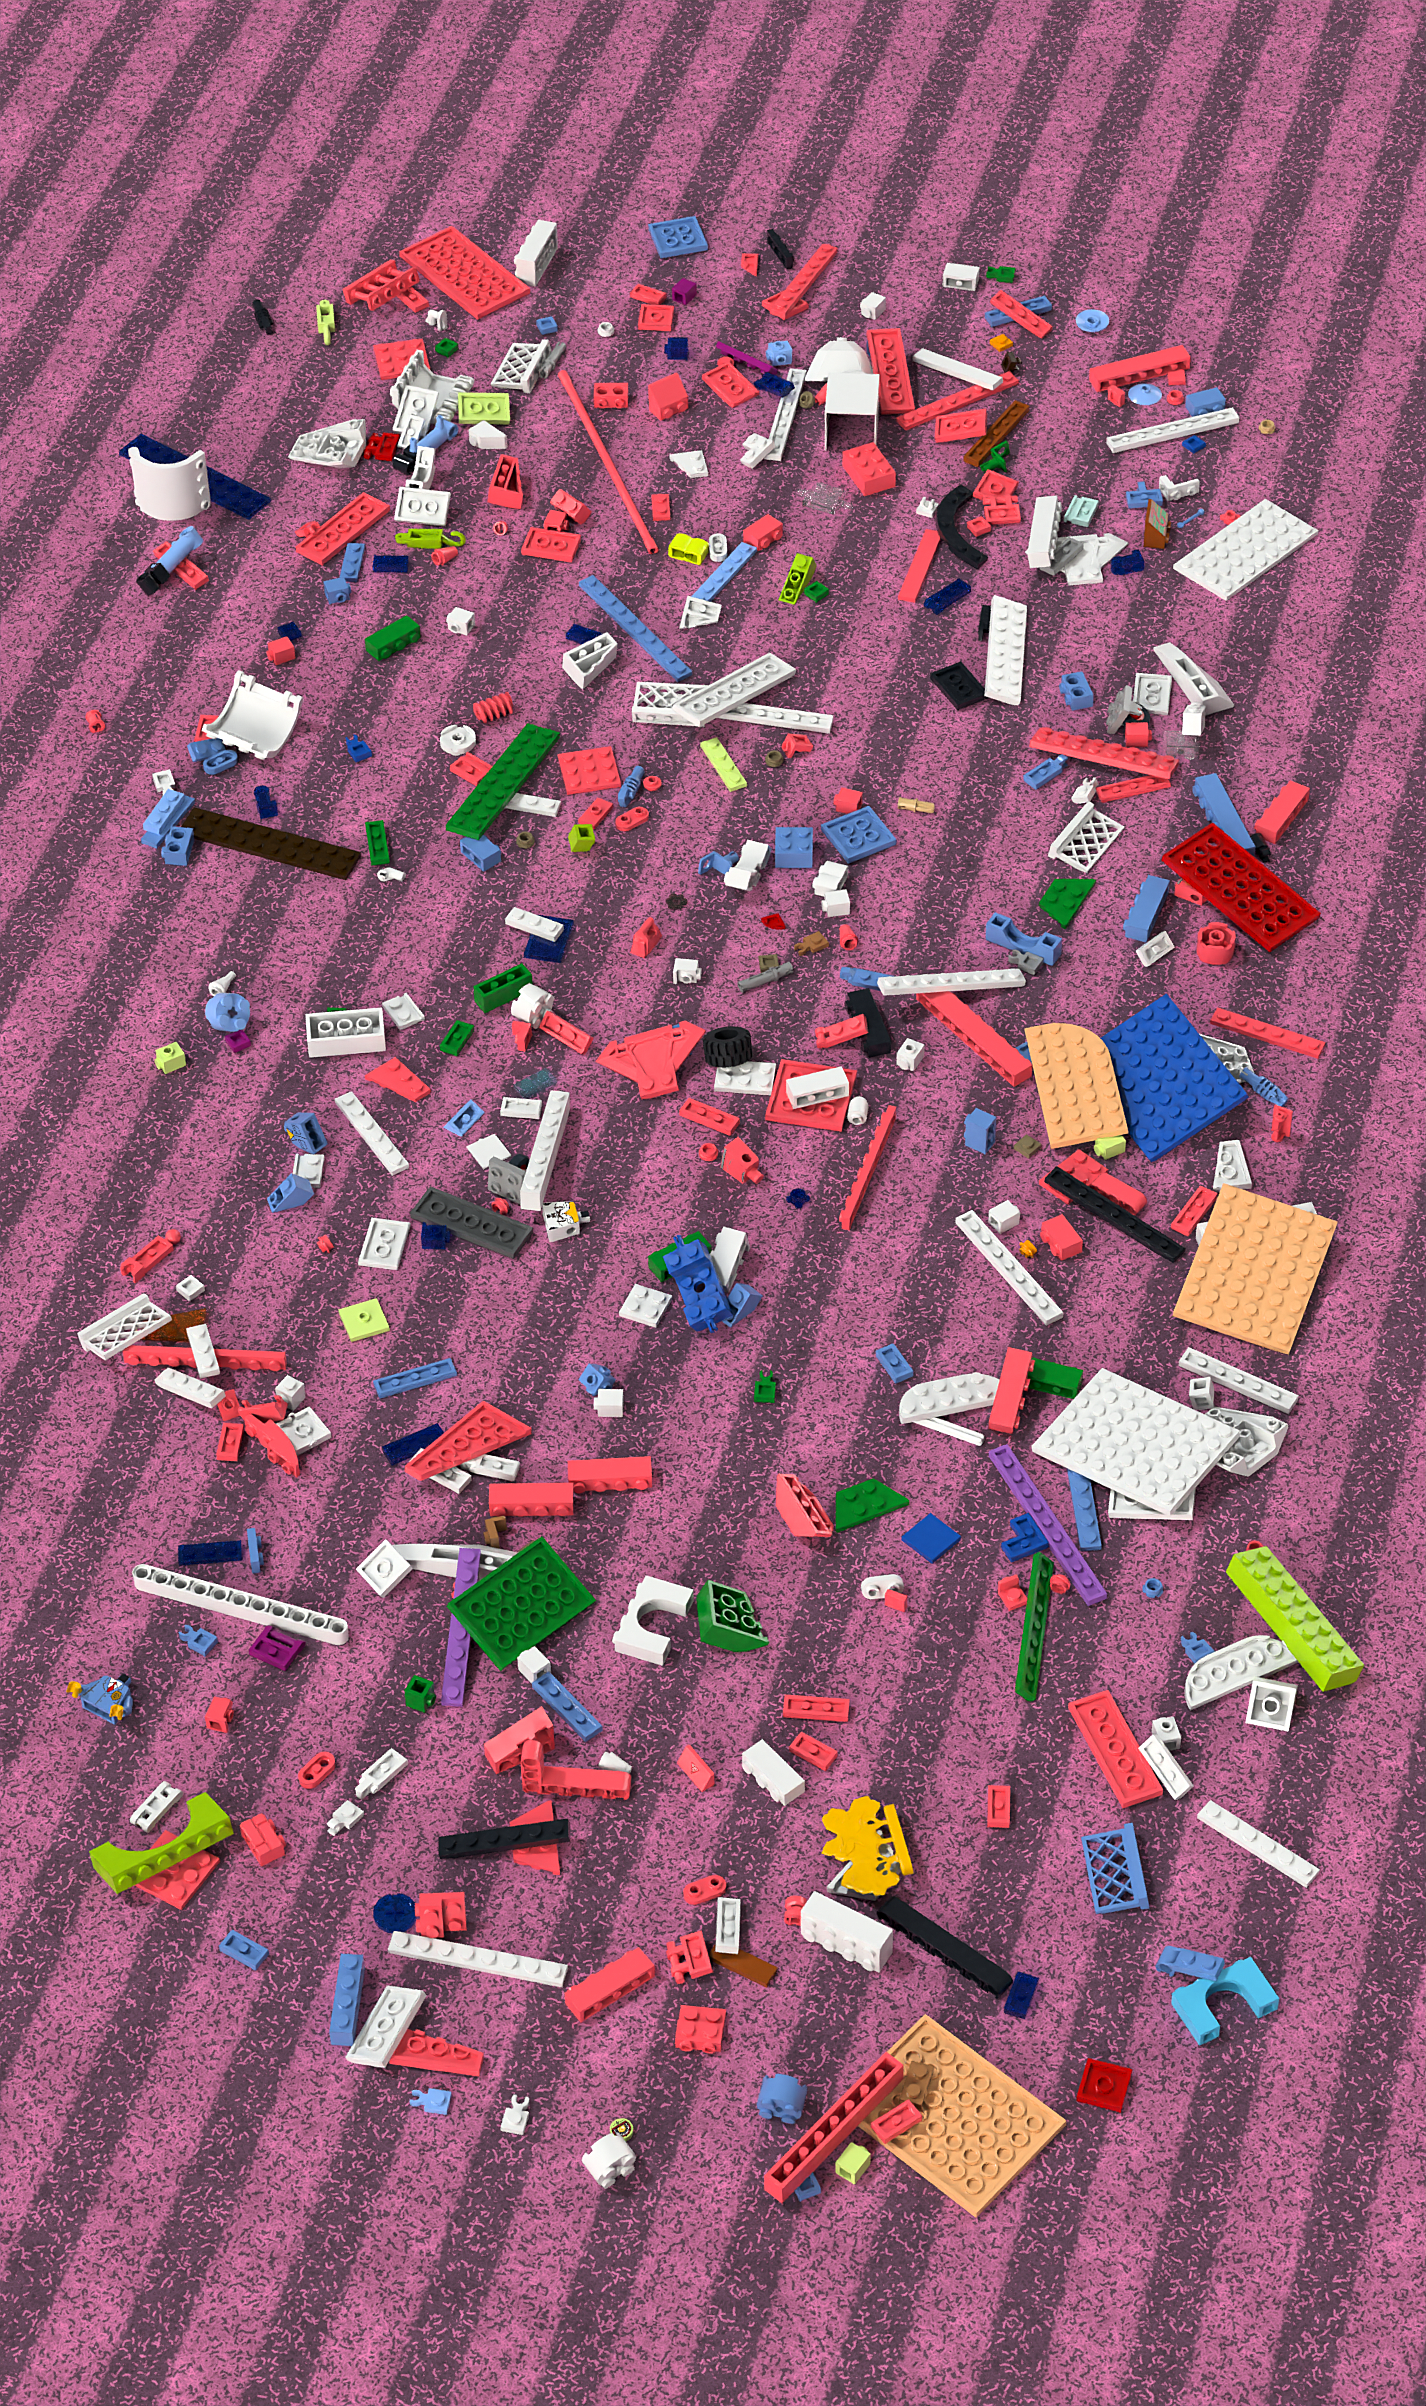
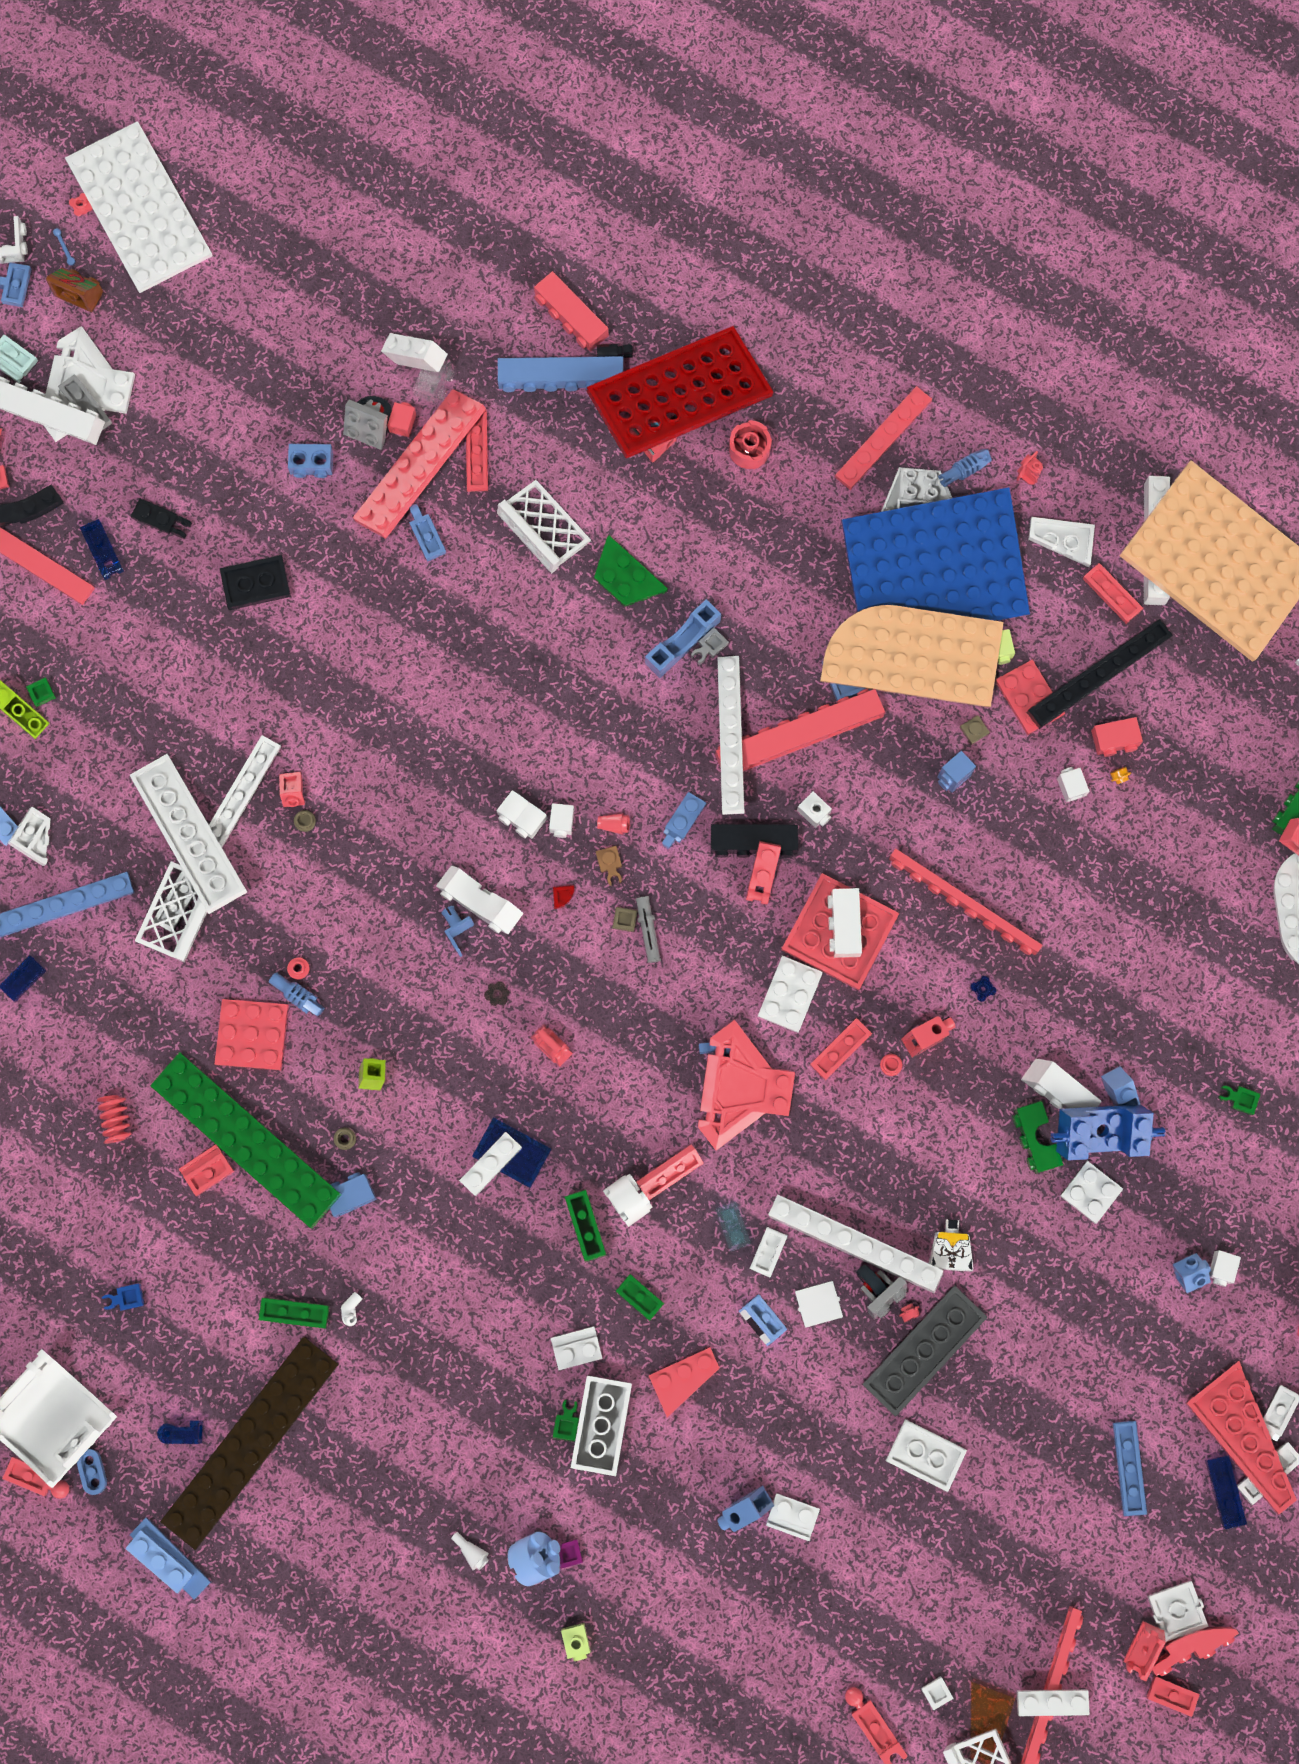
camera: 75 degrees left, 30 degrees up
(163, 781) = (103, 1549): white plate -> none
(178, 846) = (226, 1550): medium blue brick -> none
(190, 1387) = (1092, 1727): white plate -> none
(204, 749) = (71, 1490): medium blue plate -> none
(229, 1406) = (1117, 1688): coral bracket -> none
(290, 1193) = (830, 1546): medium blue slope -> none
(291, 1391) = (1126, 1614): white brick -> none
(325, 1244) = (913, 1525): coral plate -> none
(363, 1320) = (1032, 1505): yellowish green plate -> none
(372, 1133) = (755, 1430): white plate -> none
(434, 1236) = (929, 1402): clear blue brick -> none
(454, 747) = (160, 1181): white plate -> none
(523, 1034) = (664, 1223): coral bracket -> none
(534, 804) = (289, 1111): white plate -> none
(589, 659) = (74, 987): white wedge -> none
(596, 812) = (325, 1046): coral plate -> none
(632, 819) = (348, 1006): coral plate -> none
(686, 971) = (616, 1013): white brick -> none
(723, 764) = (292, 879): yellowish green plate -> none
(727, 1046) = (740, 997): black tyre -> none
(794, 847) = (461, 840): medium blue brick -> none
(848, 800) = (404, 759): coral brick -> none
(857, 1110) = (878, 889): white brick -> none
(858, 834) = (458, 764): medium blue plate -> none
(894, 1363) = (1240, 957): medium blue plate -> none
(915, 805) = (431, 688): tan axle -> none
(1005, 650) = (217, 514): white plate -> none
(1009, 1268) = (1140, 801): white plate -> none
(1086, 792) = (472, 503): white plate -> none
(1119, 1193) = (1071, 659): coral beam -> none
(1128, 563) = (120, 337): clear blue leg -> none
(1147, 908) = (672, 497): medium blue brick -> none
(1153, 692) = (335, 381): white tile -> none
(1155, 949) = (733, 509): white plate -> none
(1193, 680) = (334, 331): white wedge -> none

